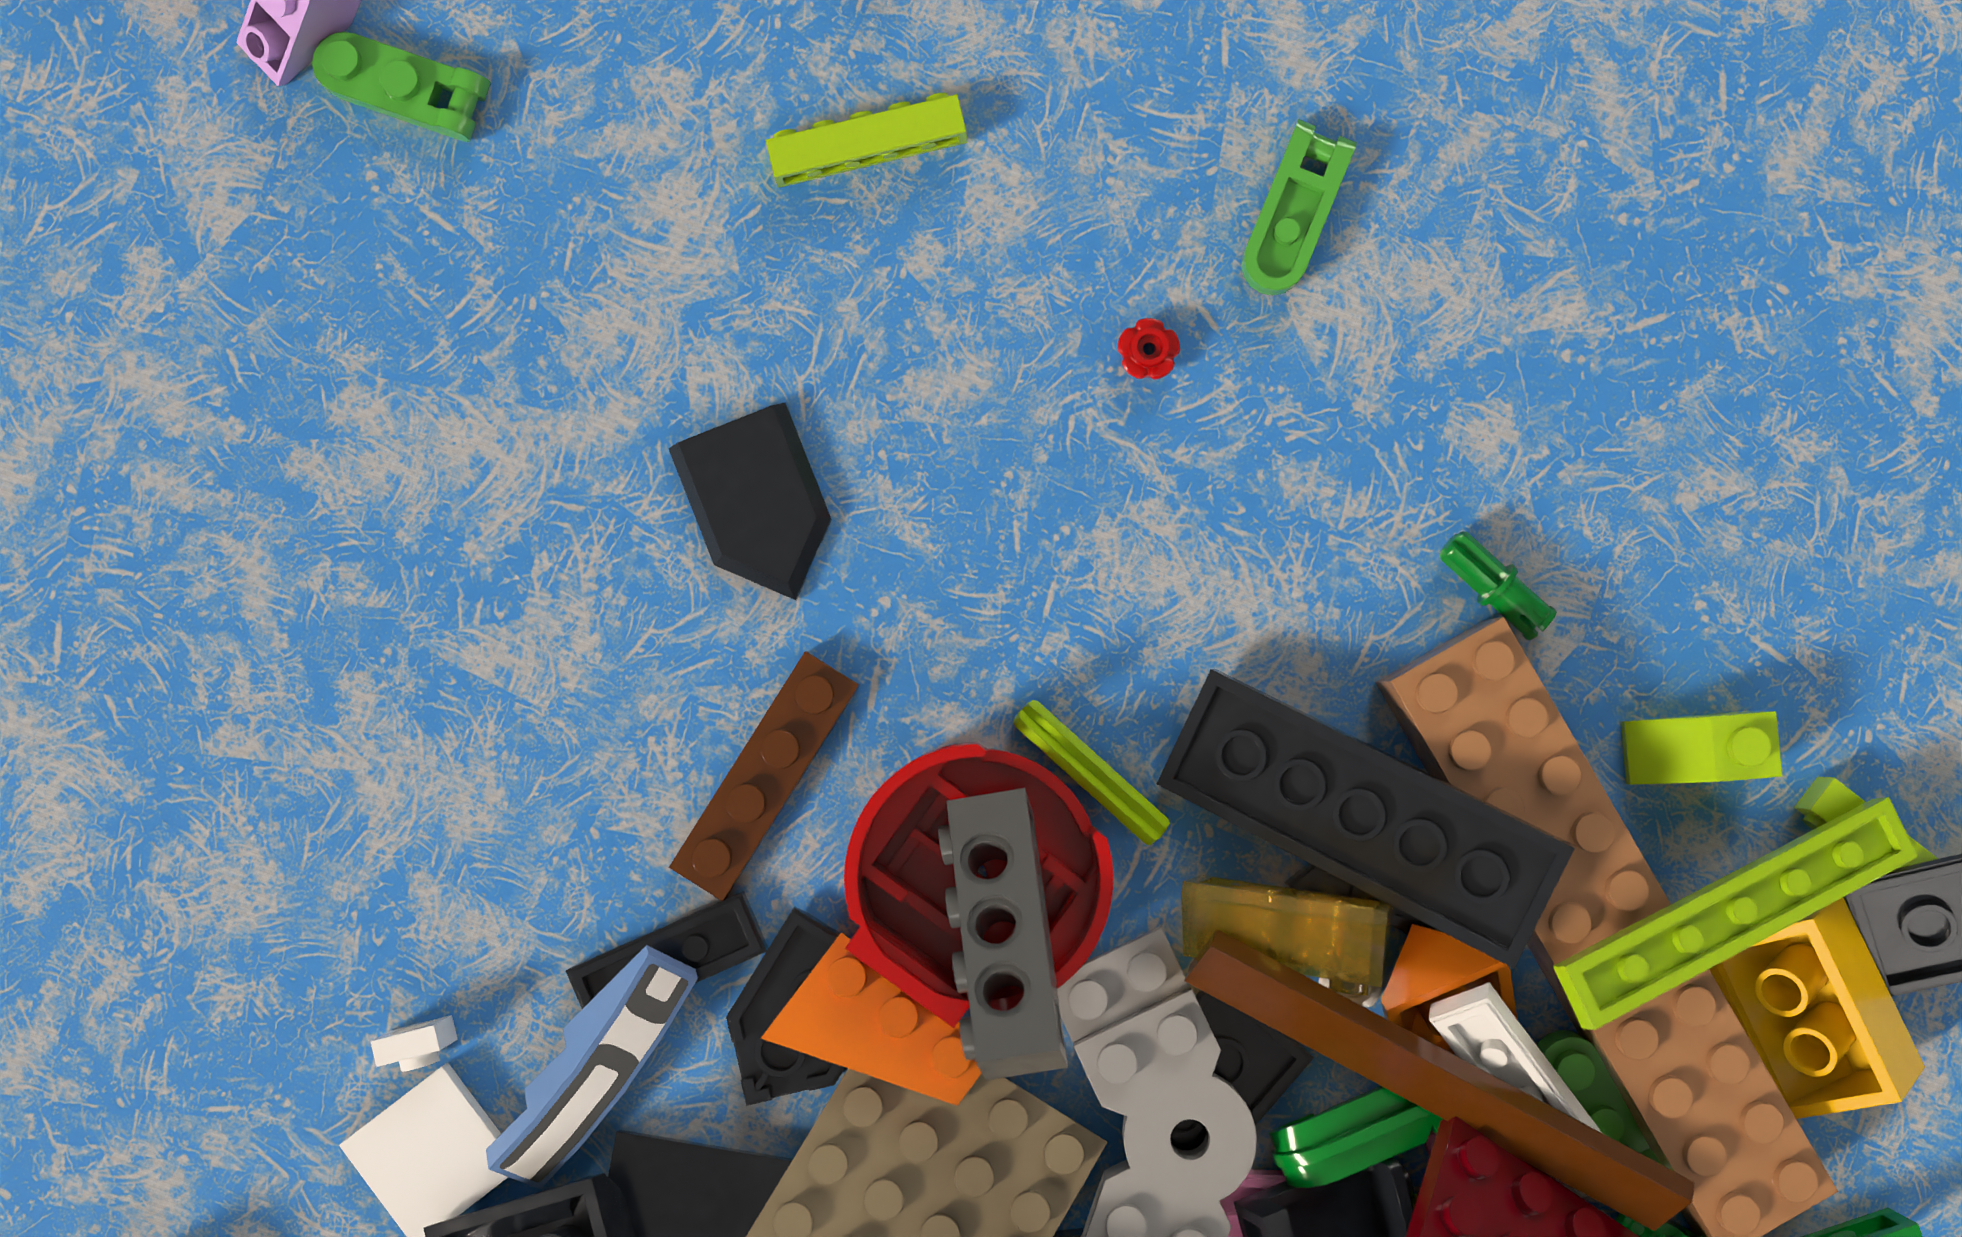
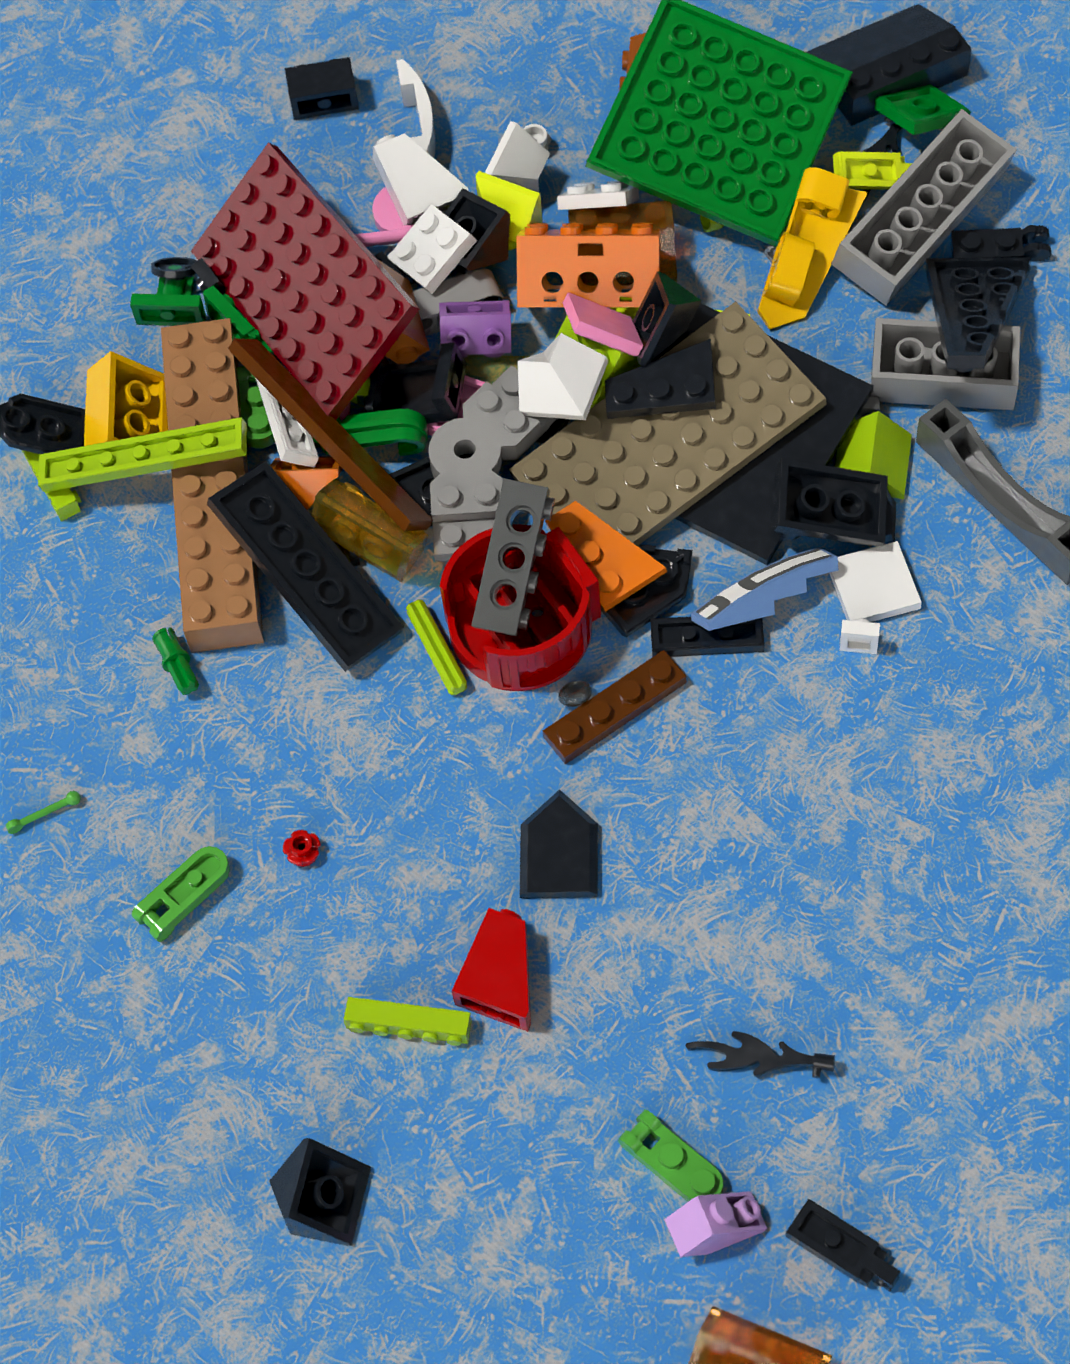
camera: 155 degrees left, 25 degrees down
(117, 47) = (841, 1246): none -> black hinge
(340, 290) = (756, 1051): none -> black piece
(762, 260) = (497, 971): none -> red slope
(820, 759) = (575, 693): none -> clear smoke piece
(1544, 298) = (15, 825): none -> bright green hinge
(1702, 748) = (113, 547): lime slope -> none

